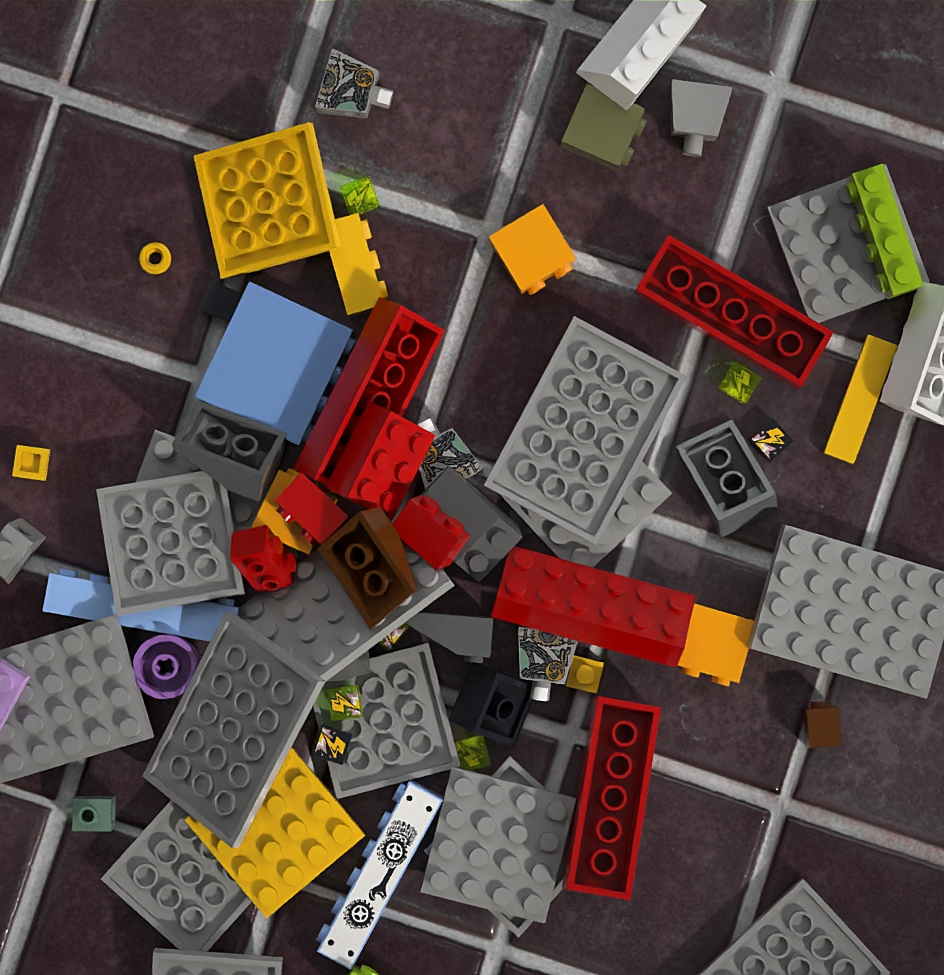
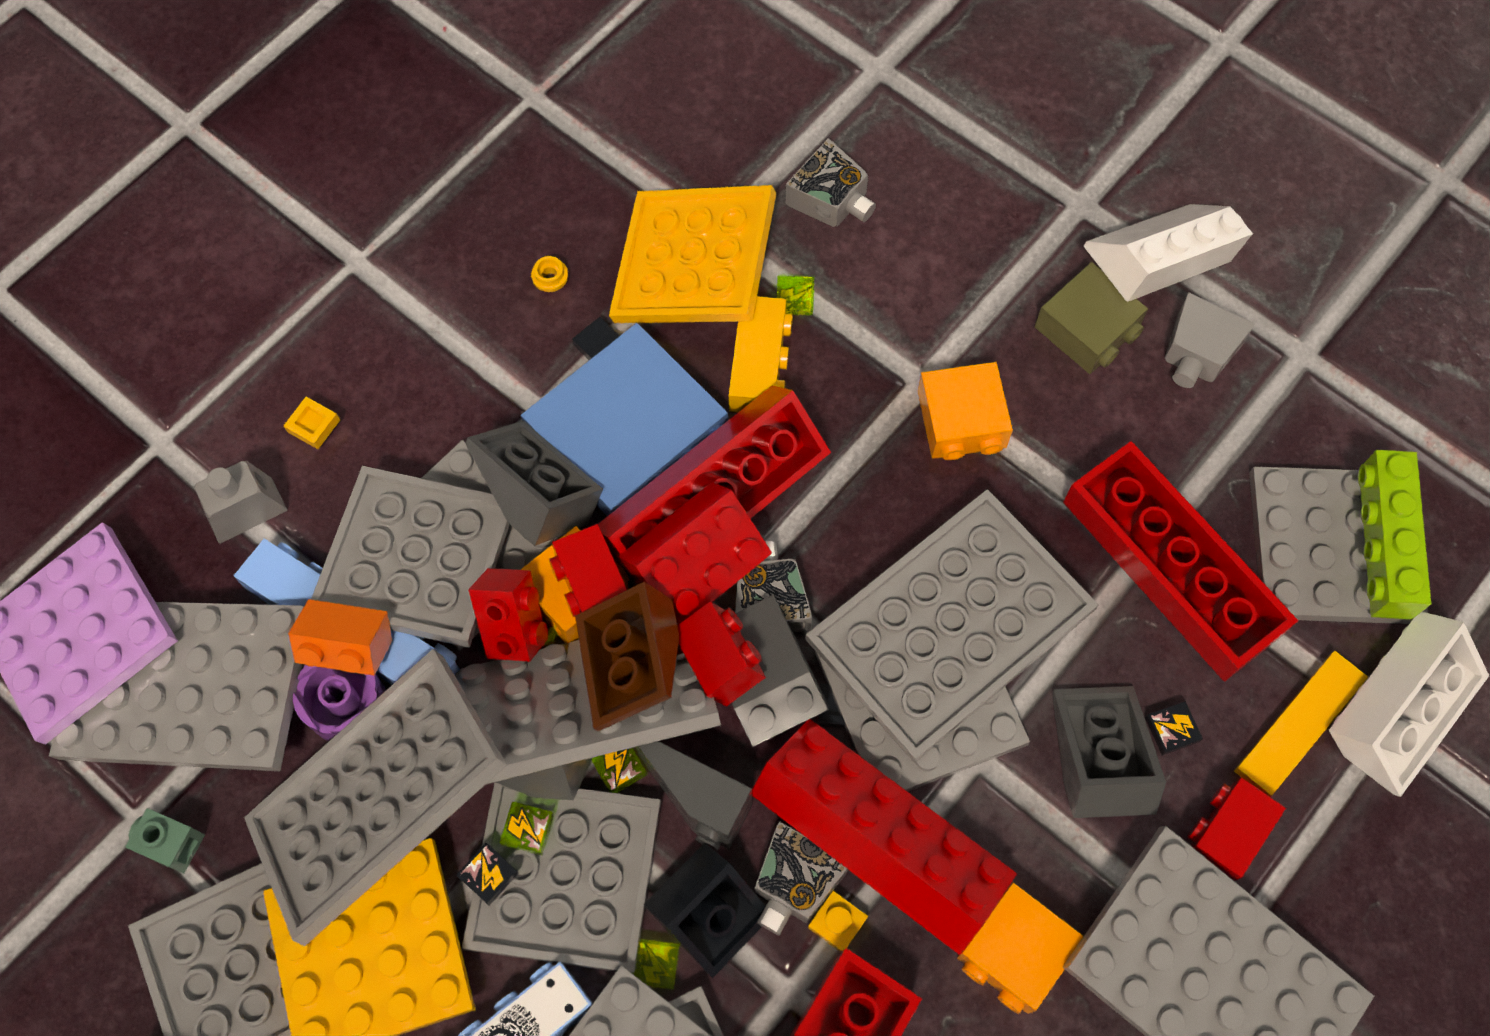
camera: 25 degrees right, 20 degrees down
(152, 629) = (340, 637): none -> orange brick
(739, 382) = (1156, 648): clear neon green tile -> none
(834, 501) = (1235, 827): none -> red brick

